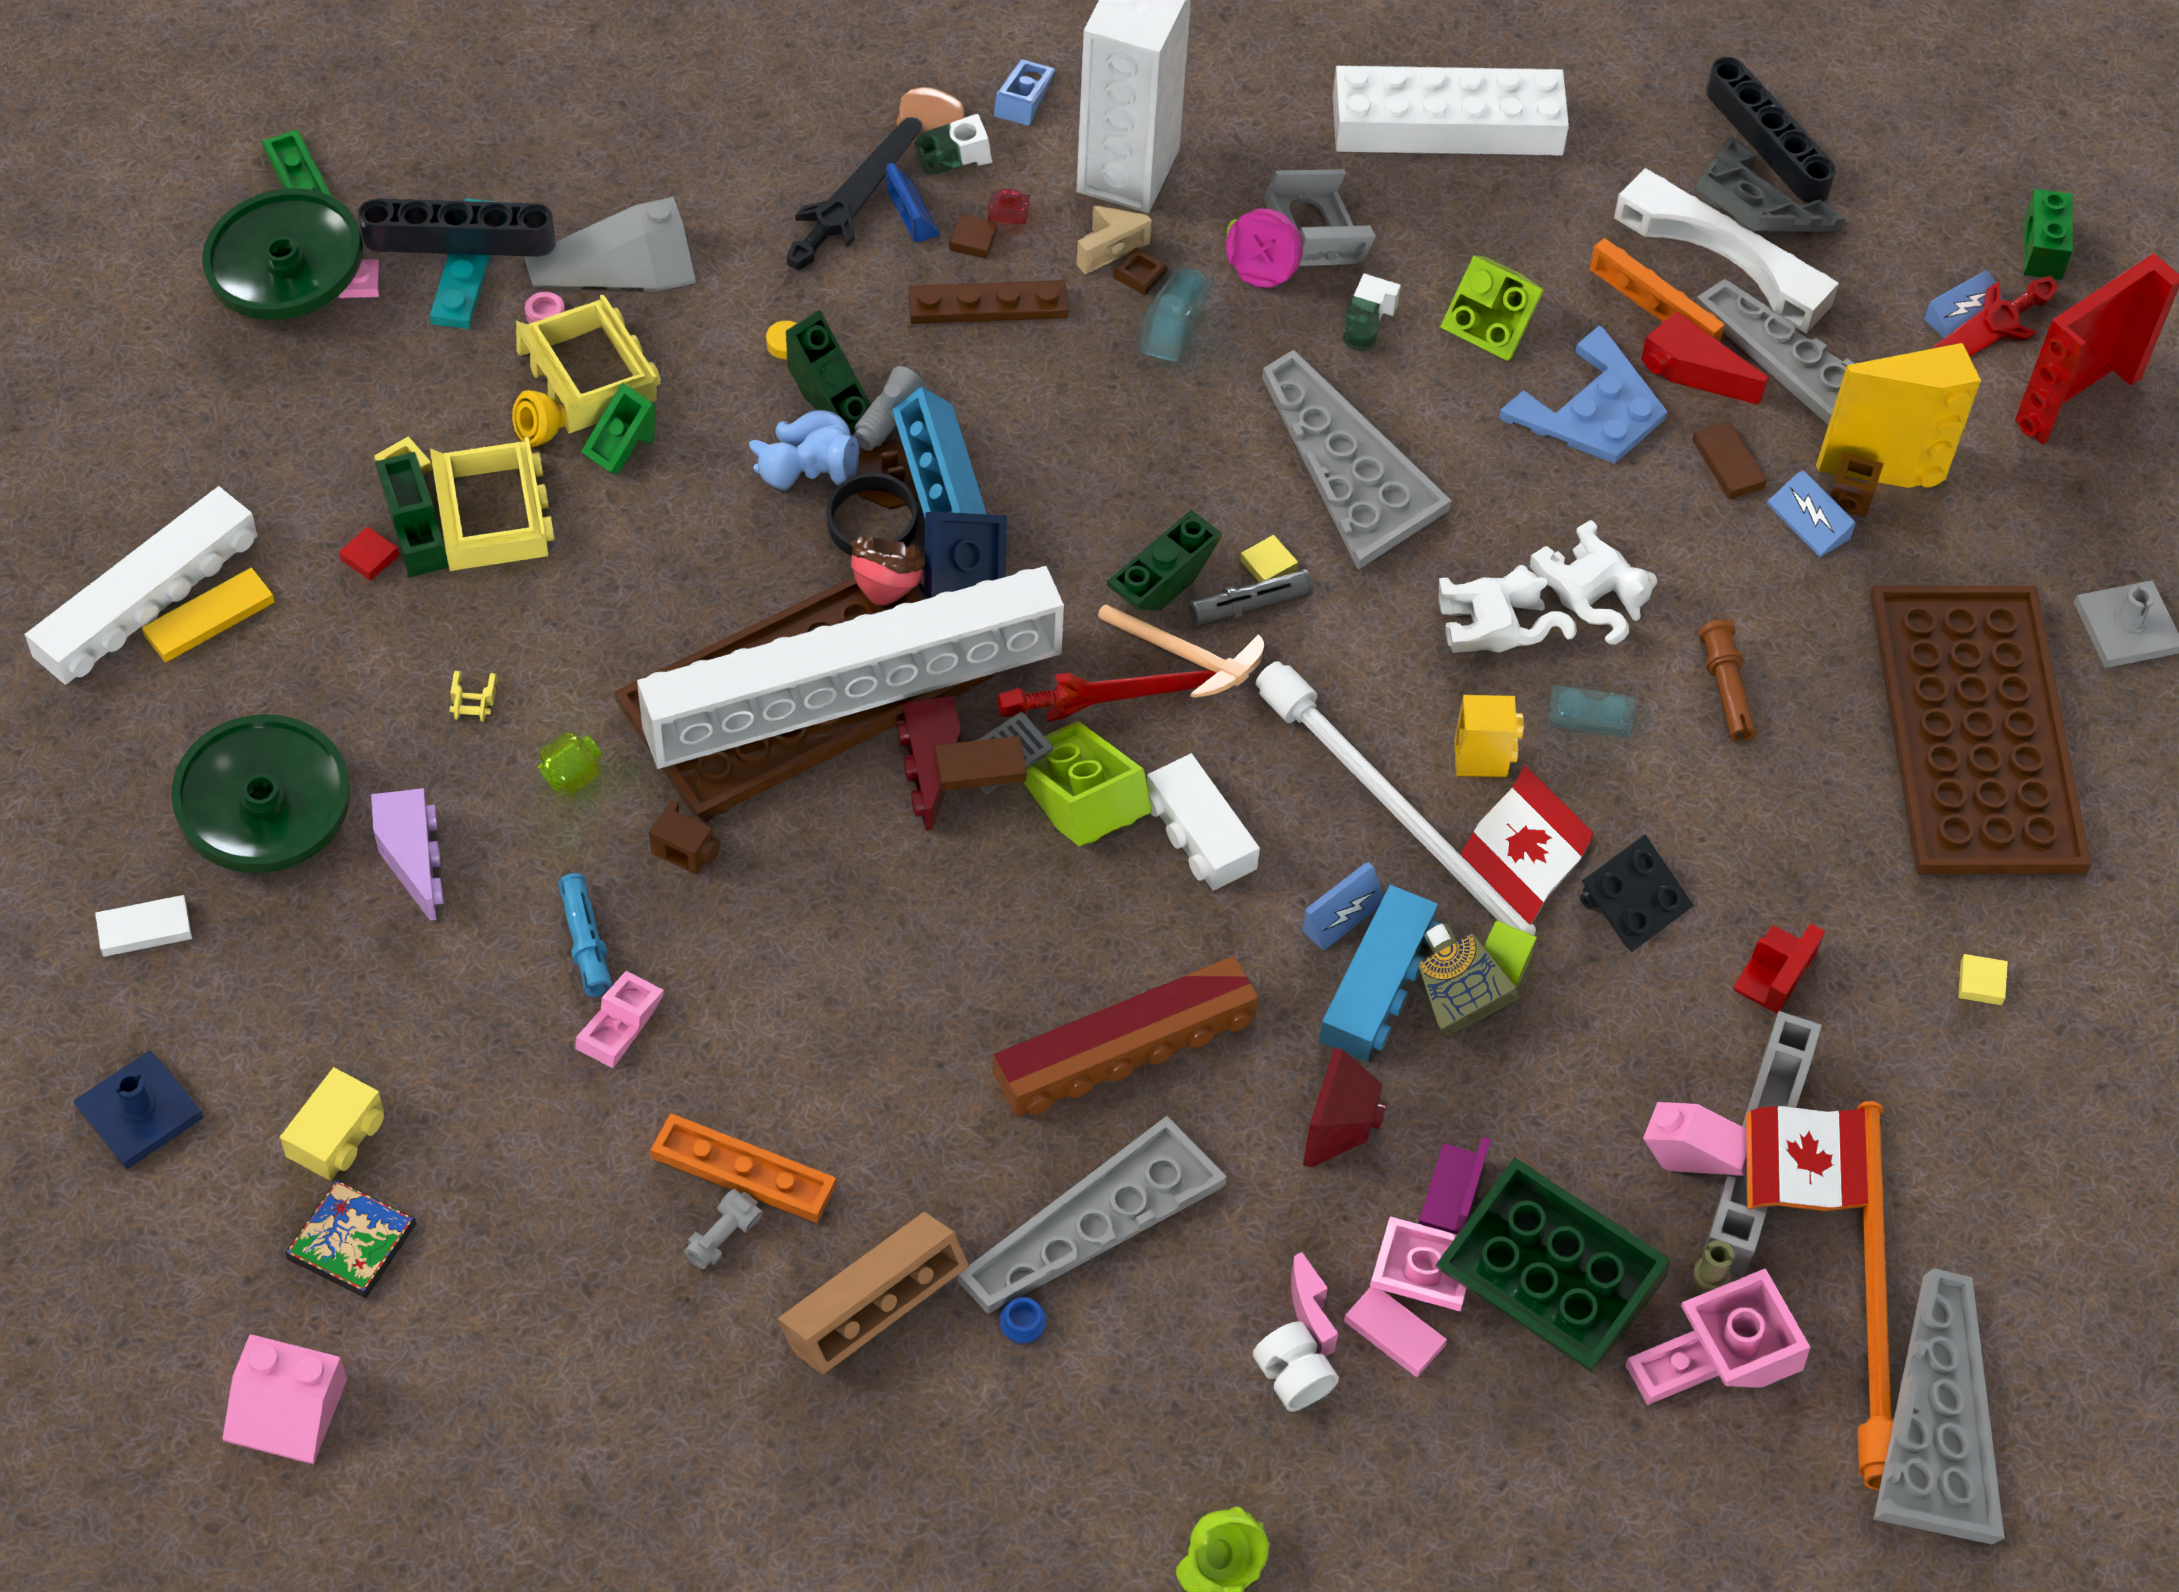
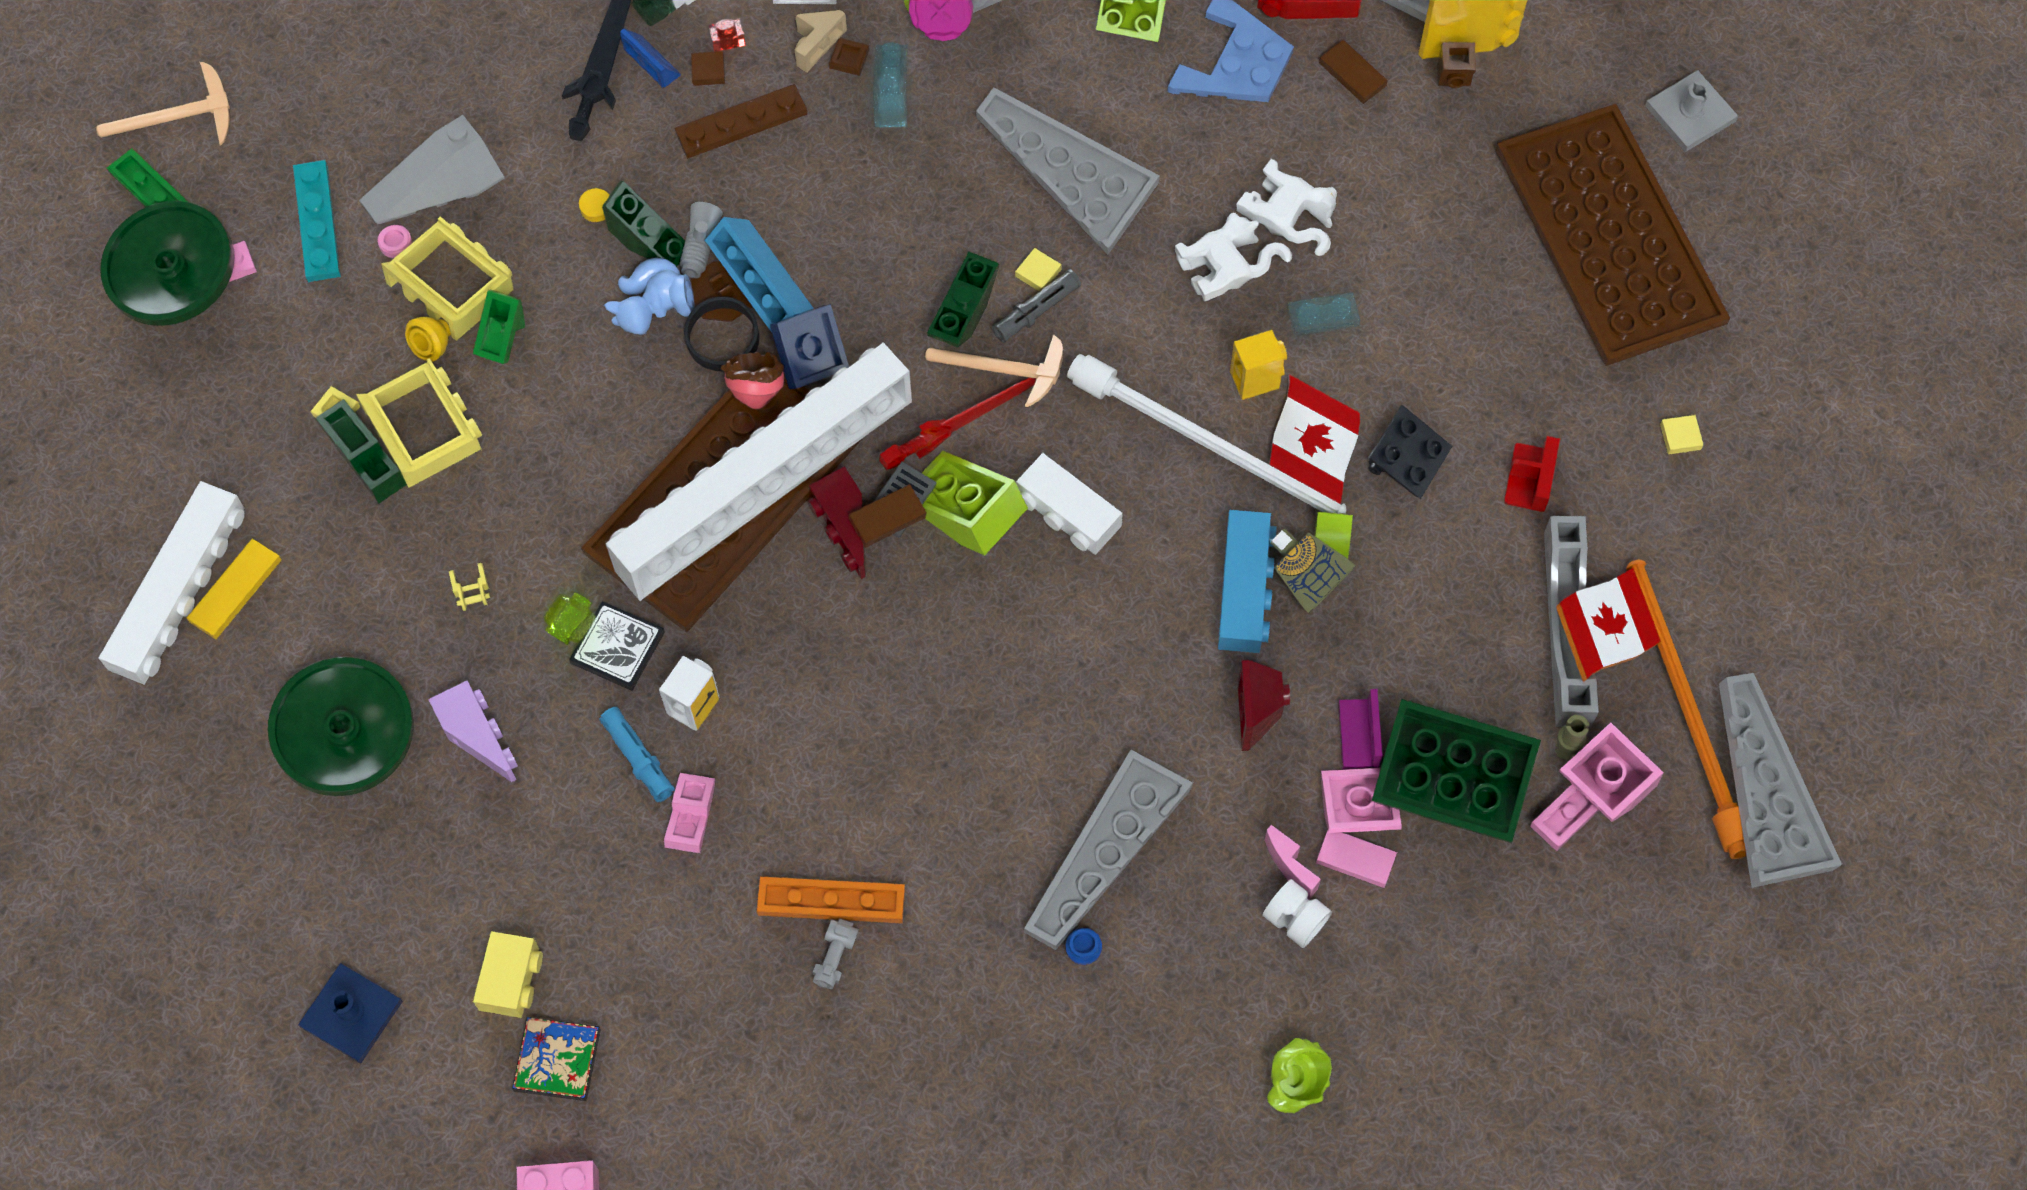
camera: 15 degrees left, 10 degrees up
(143, 925) = (291, 863): white tile -> none
(368, 553) = (339, 494): red tile -> none
(409, 112) = (215, 103): none -> light nougat piece
(457, 227) = (283, 196): black beam -> none
(610, 812) = (617, 646): none -> tile
(671, 882) = (690, 692): none -> white brick
(683, 839) = (685, 643): reddish brown brick -> none
(873, 1292) = (968, 965): medium nougat brick -> none
(1125, 1037) = (1076, 697): brick -> none
(1343, 907) = (1199, 537): medium blue slope -> none
(1368, 304) = (1037, 45): leg -> none
(1696, 1140) = (1525, 636): bright pink slope -> none
(1725, 664) = (1409, 243): dark orange pin -> none
(1812, 514) = (1430, 97): medium blue slope -> none

